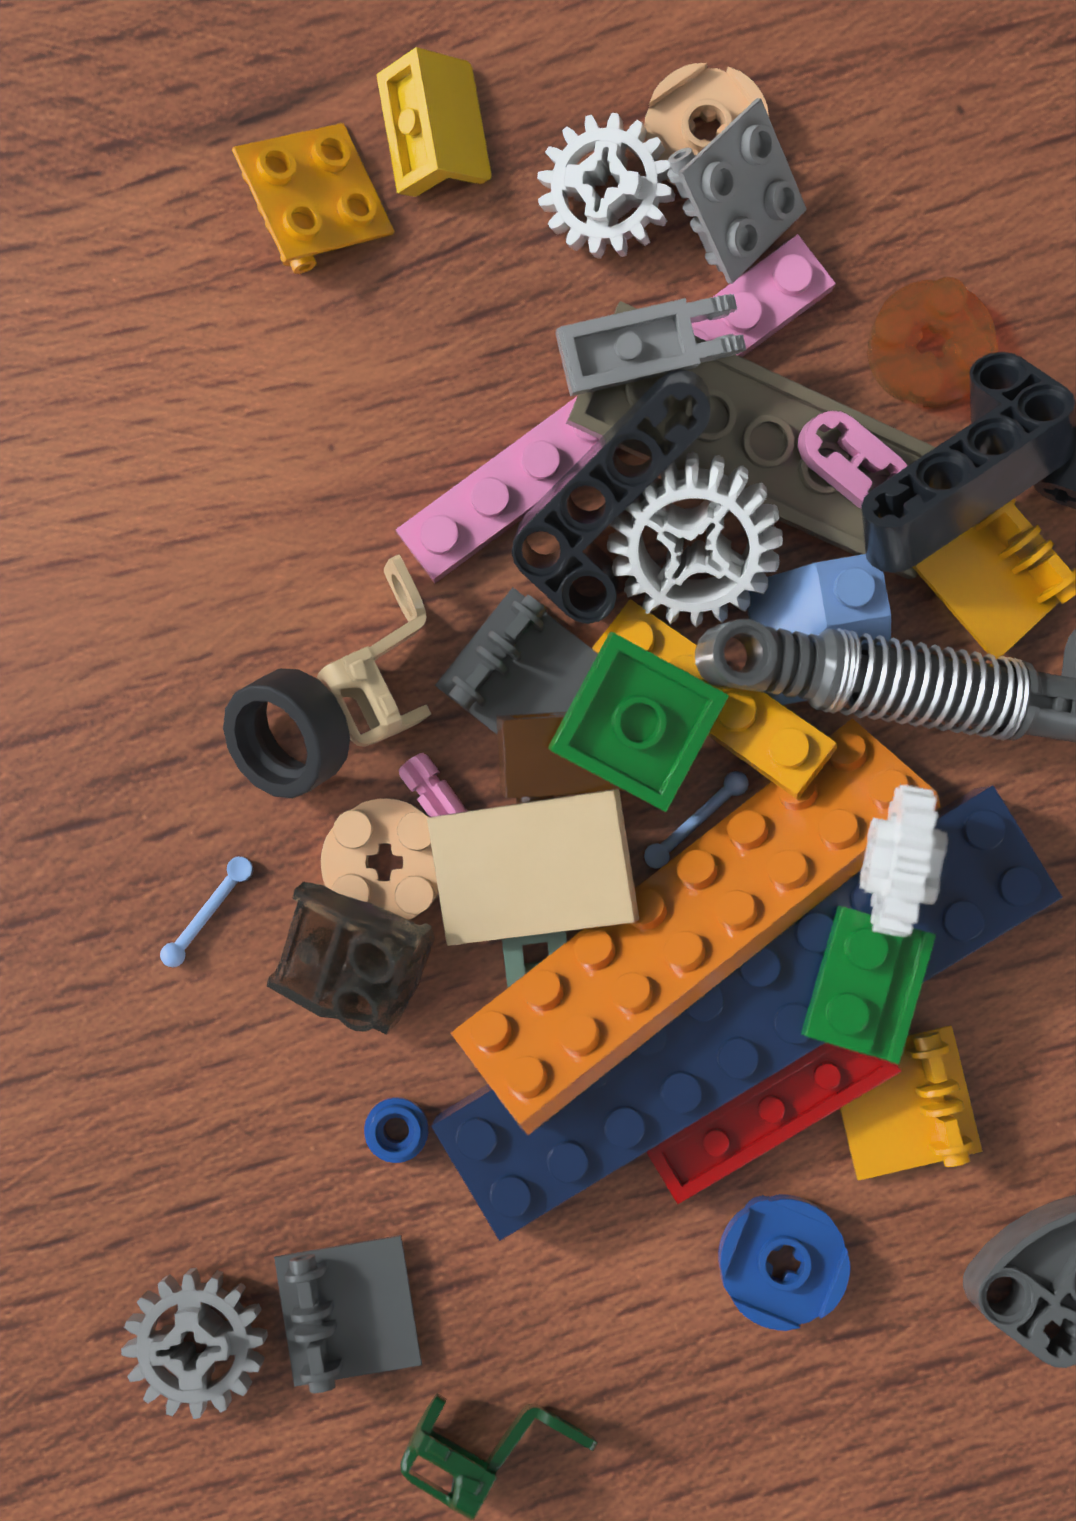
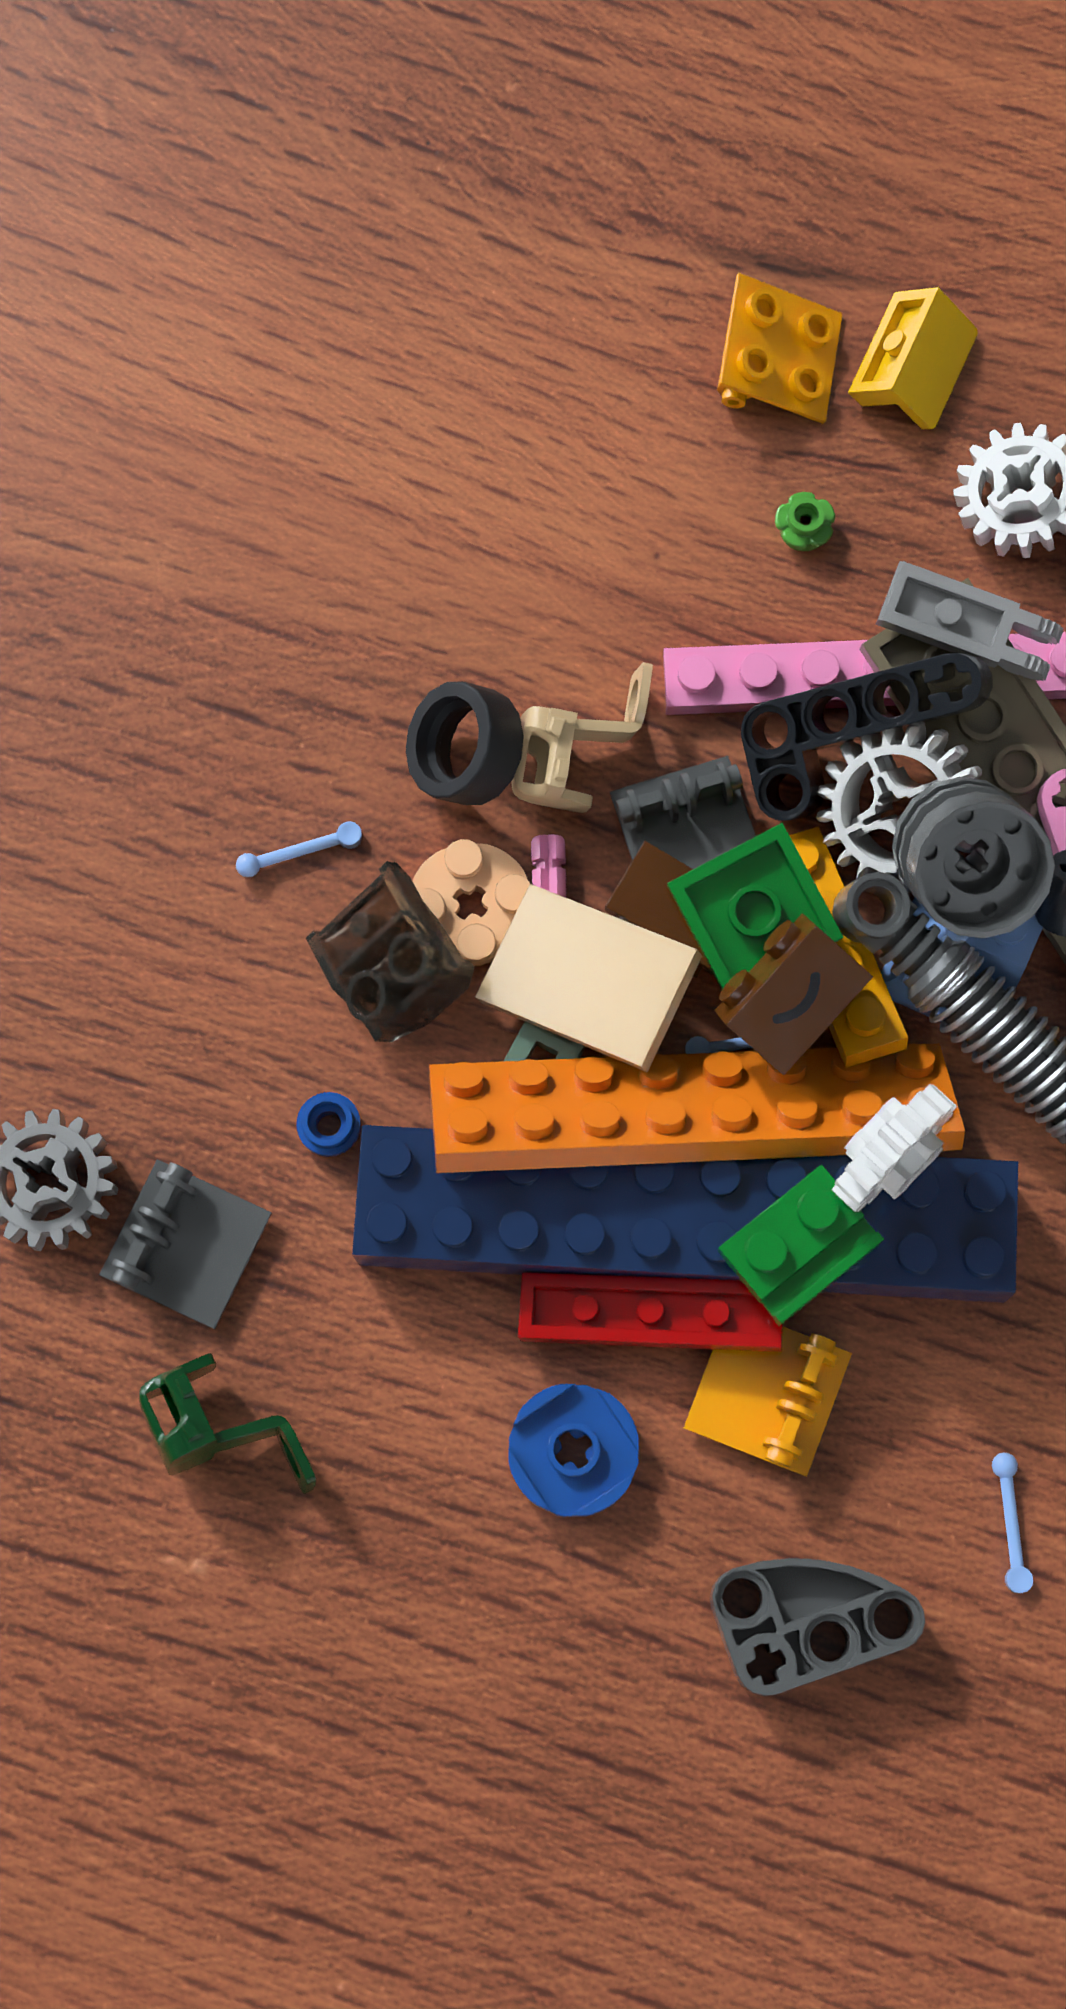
camera: 35 degrees right, 10 degrees down
(442, 350) = (801, 536): none -> bright green plate
(721, 776) = (791, 992): none -> reddish brown brick
(801, 559) = (993, 885): none -> dark grey wheel

